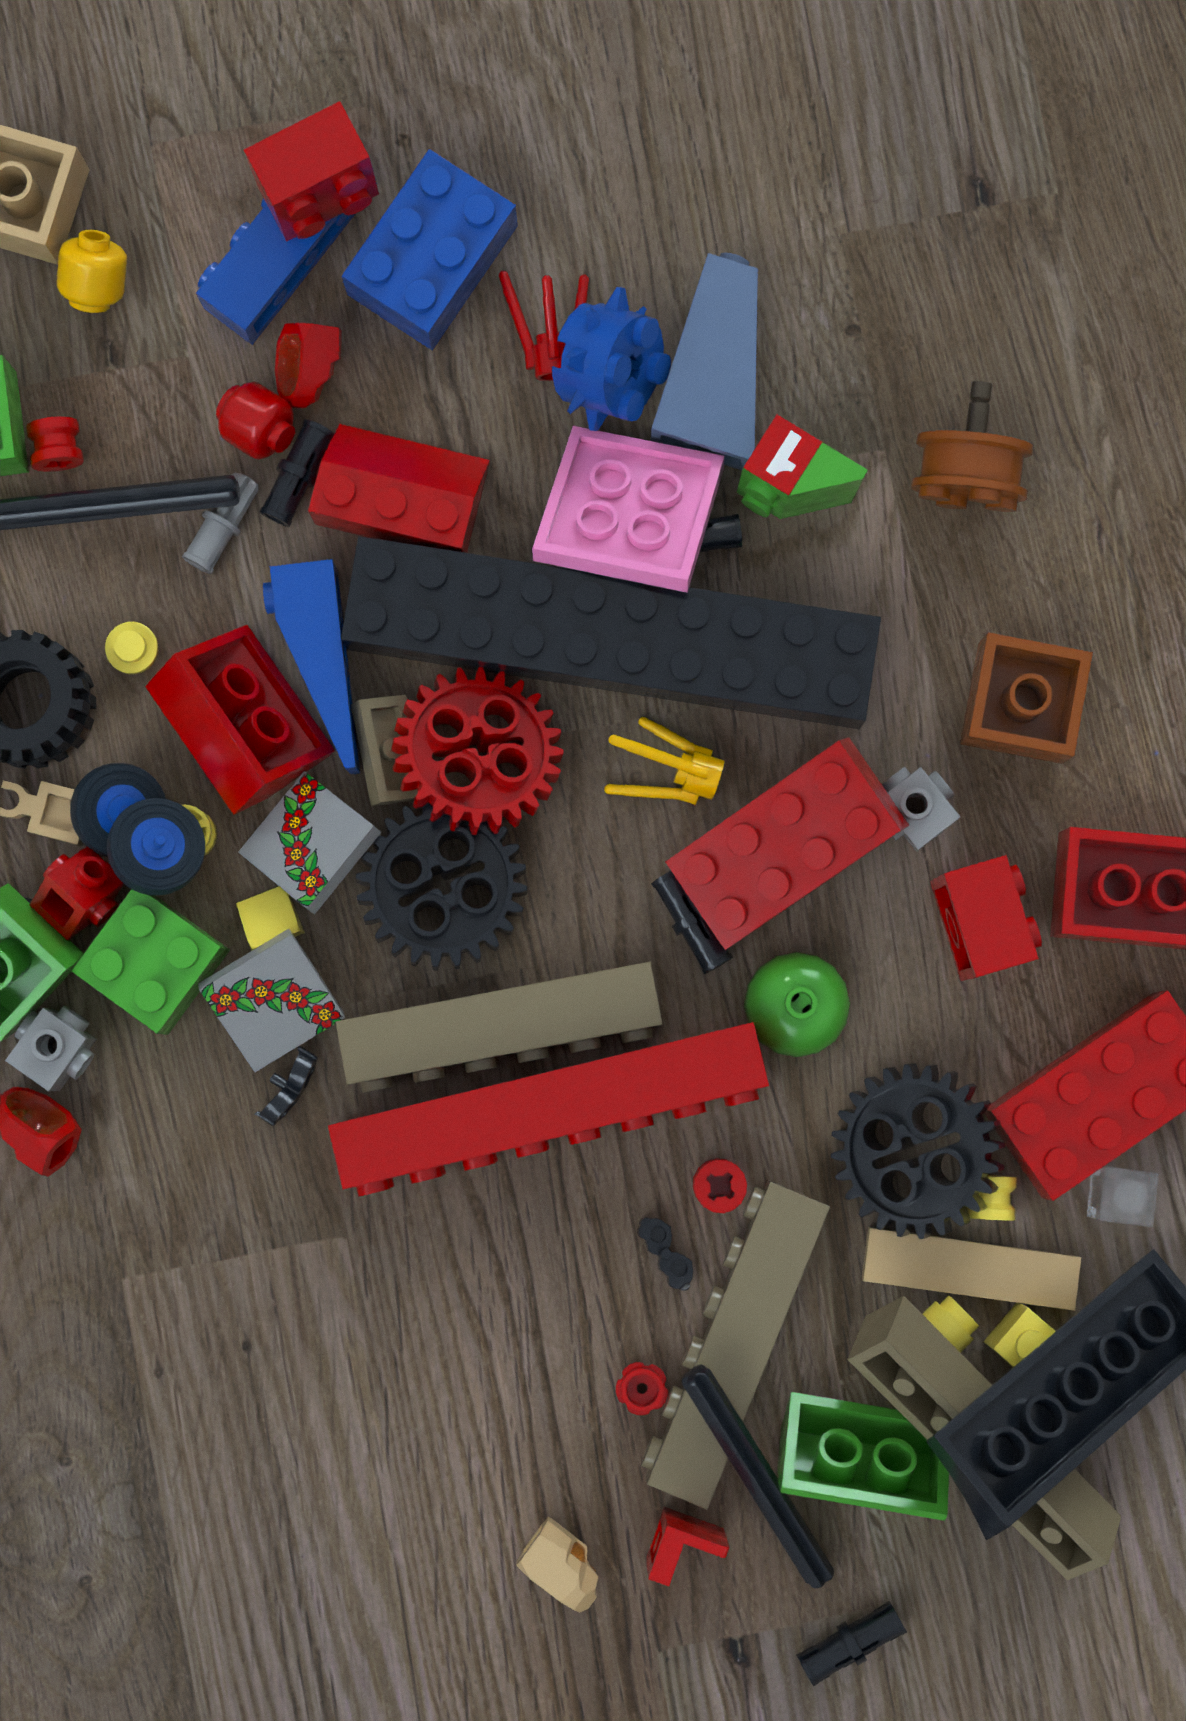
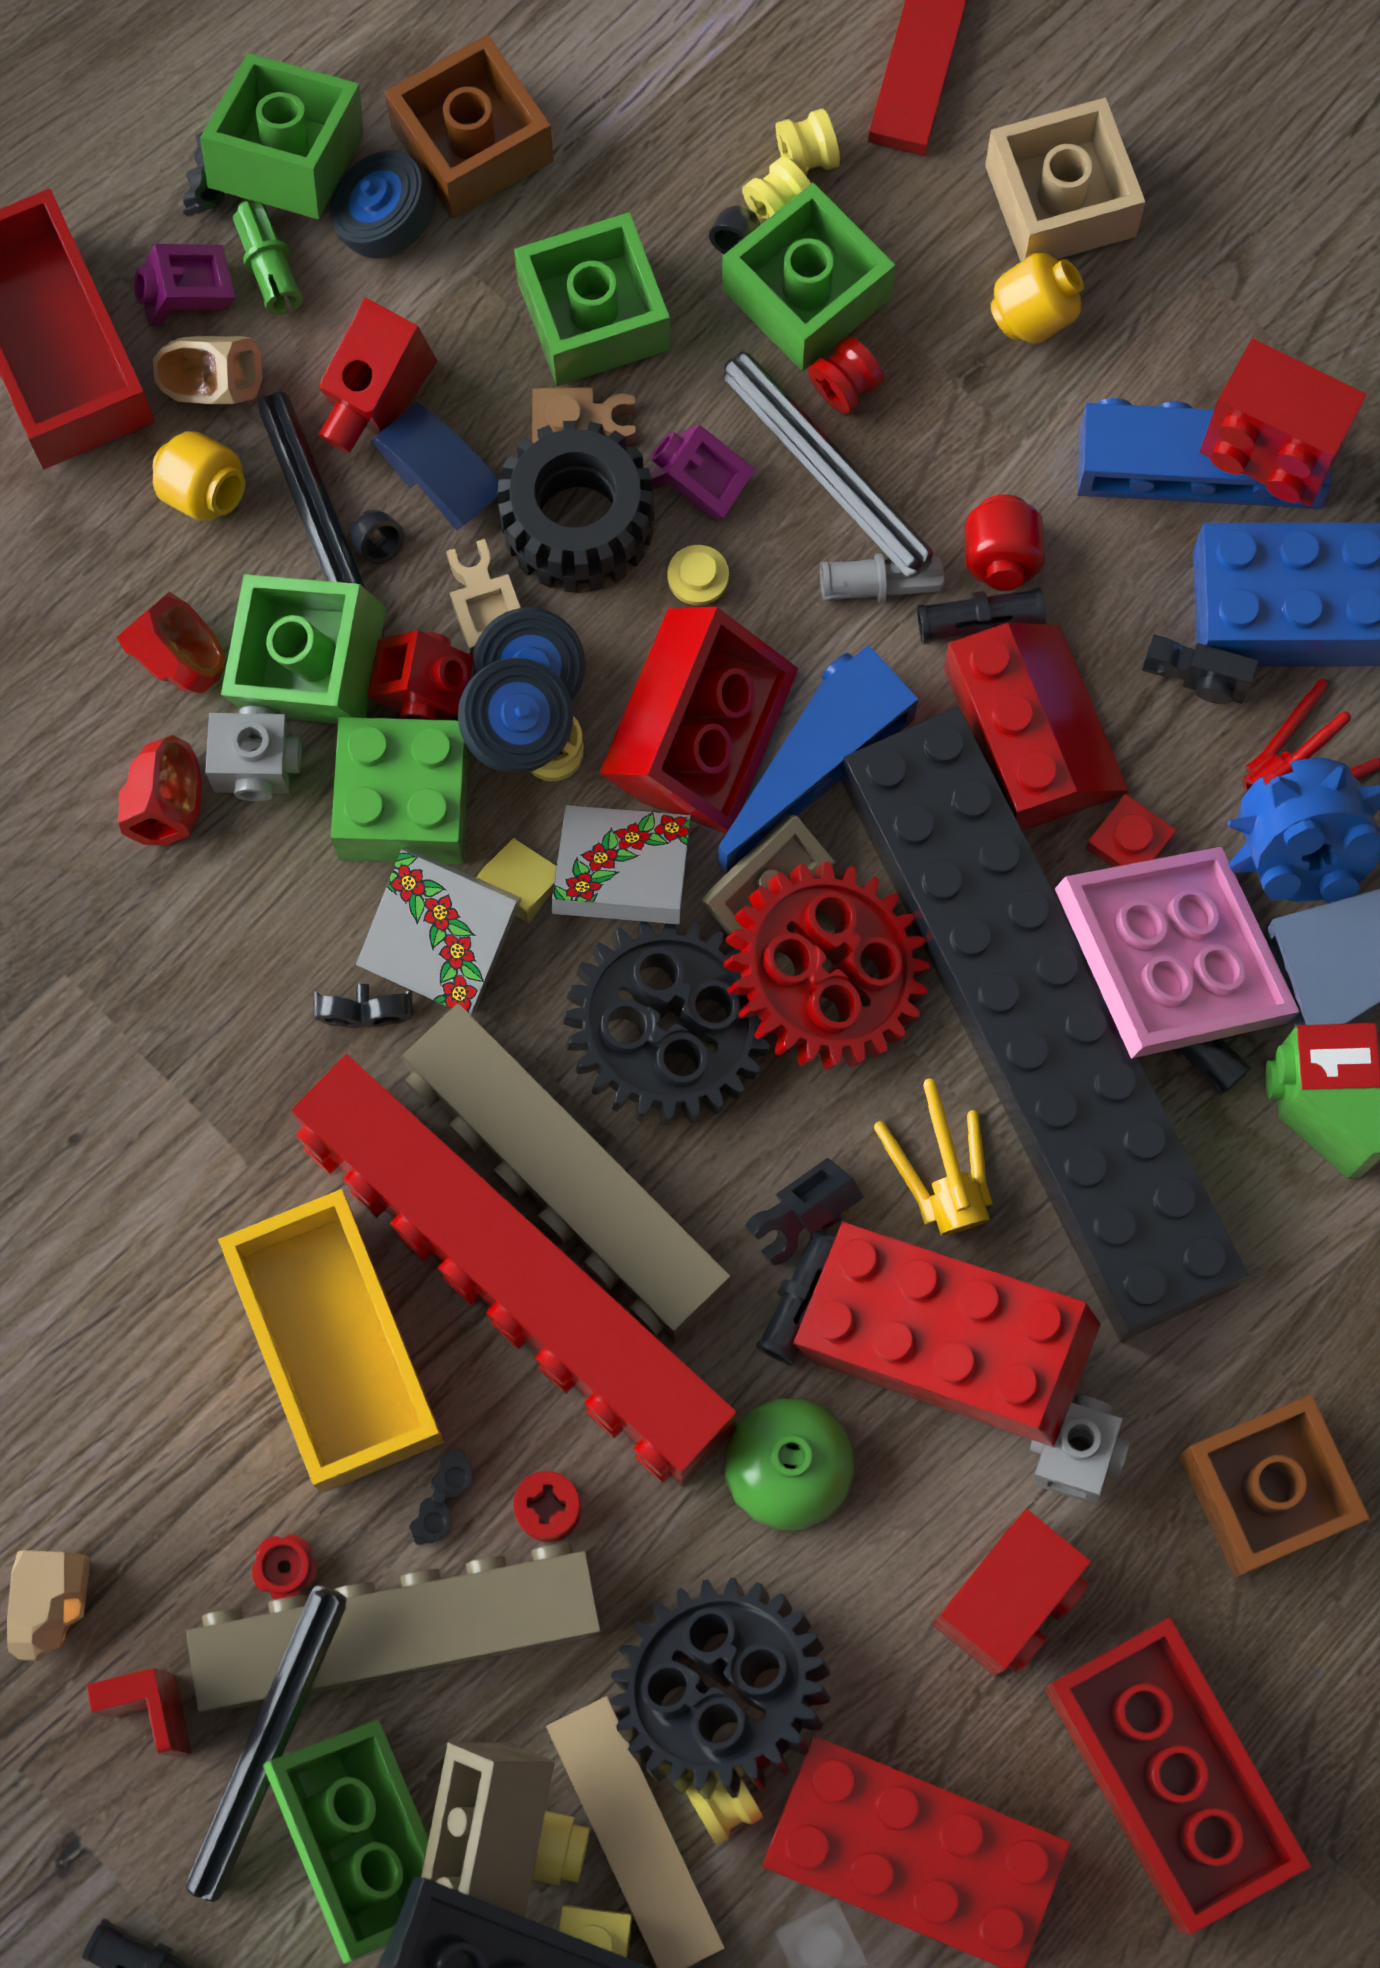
camera: 55 degrees right, 10 degrees down
(55, 594) = (700, 470): none -> magenta bracket
(305, 361) = (1097, 551): red rock -> none
(449, 344) = (1209, 671): none -> black plate
(513, 1261) = (330, 1341): none -> yellow piece
(523, 481) = (1130, 835): none -> red plate
(631, 873) = (808, 1203): none -> black plate

